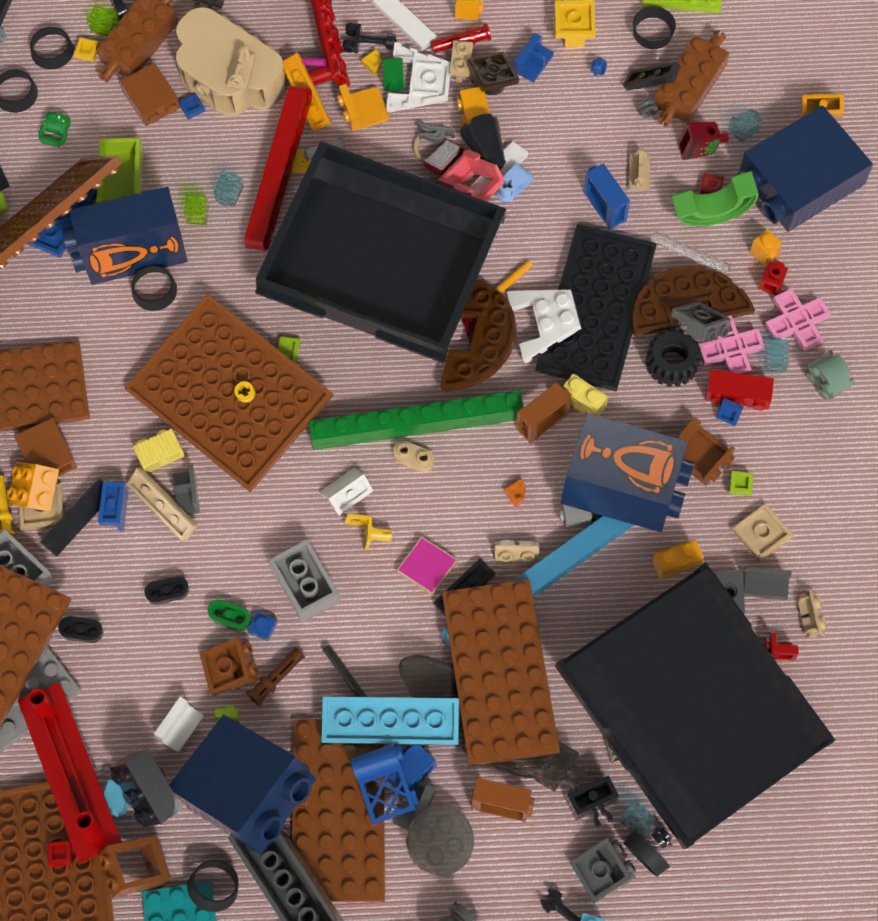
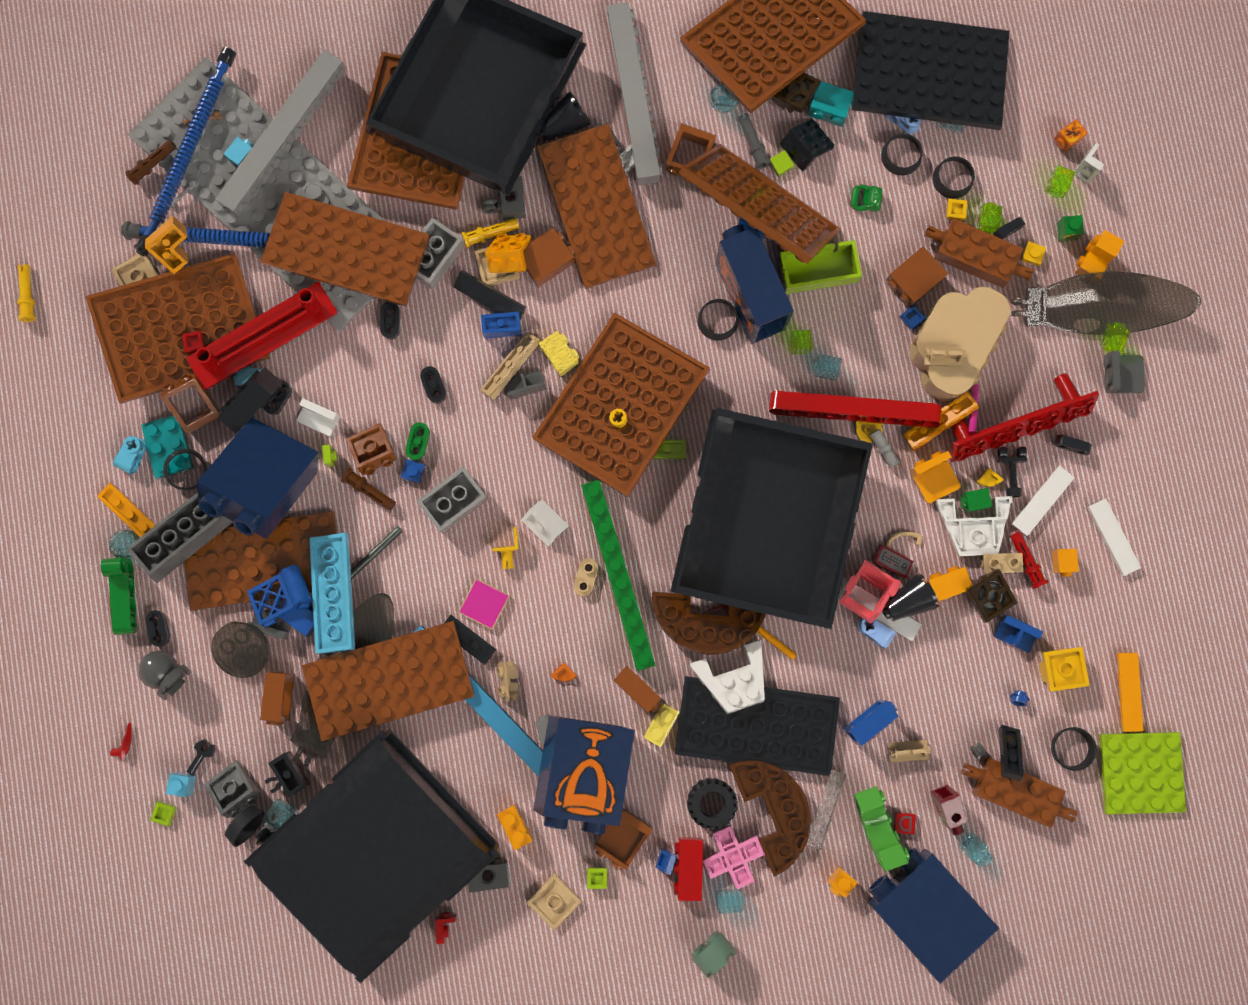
camera: 85 degrees right, 15 degrees up
(434, 134) = (922, 554): dark grey piece -> none
(702, 321) = (747, 828): dark grey plate -> none
(766, 583) = (503, 909): dark grey panel -> none
(773, 277) = (807, 886): red brick -> none
(798, 319) = (771, 918): bright pink plate -> none
(811, 605) = (473, 956): tan hinge -> none
(832, 103) = (1007, 921): light orange brick -> none

